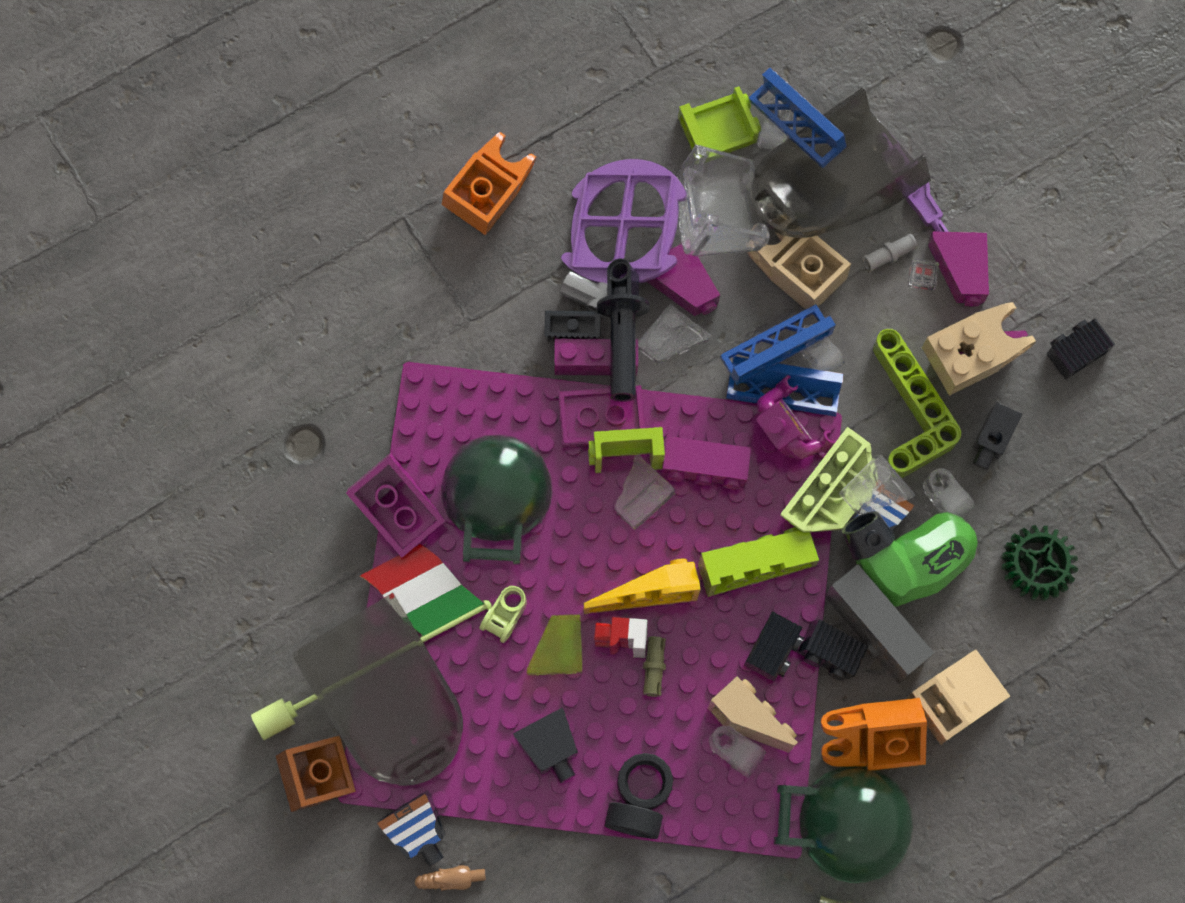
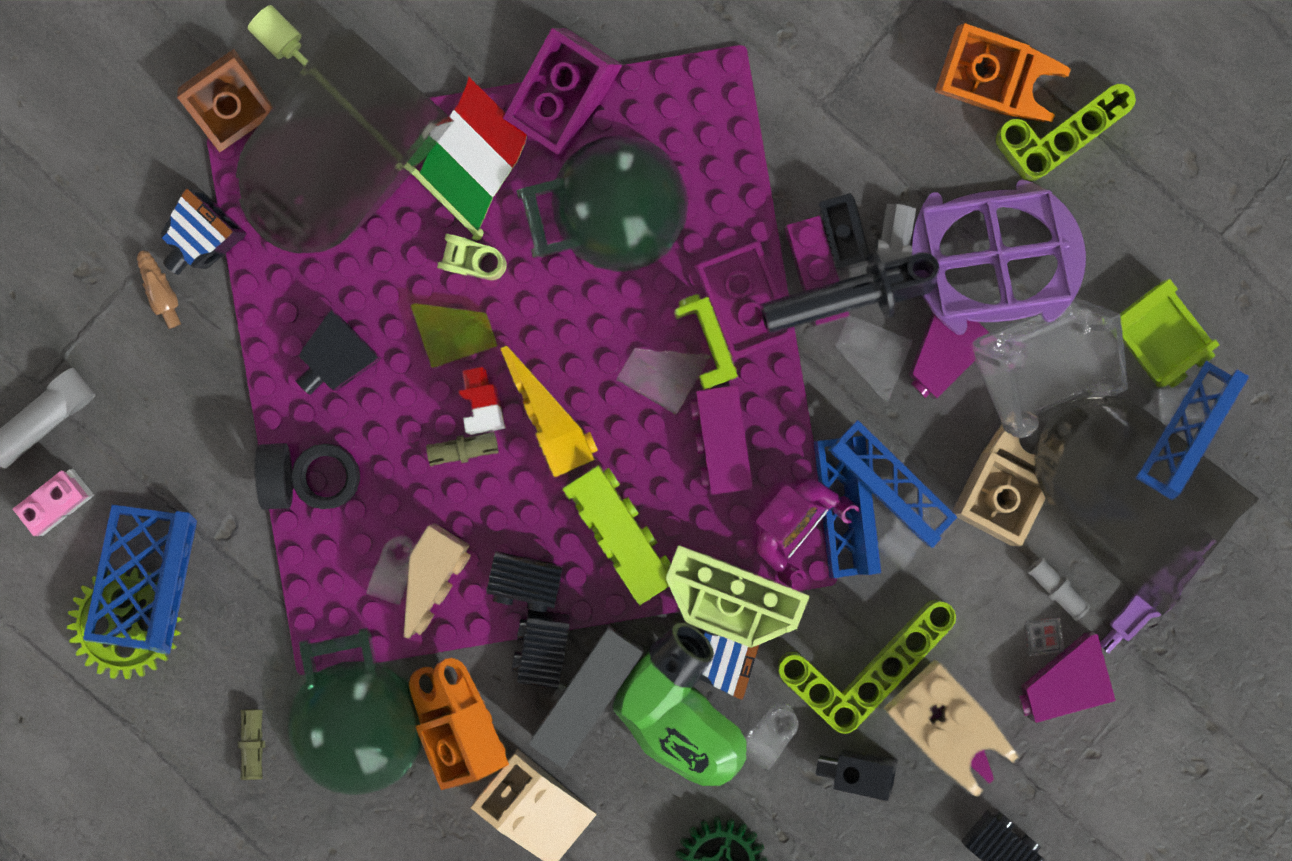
camera: 75 degrees right, 15 degrees up
(545, 145) = (1071, 129): none -> lime beam
(875, 487) = (745, 649): clear wing -> none

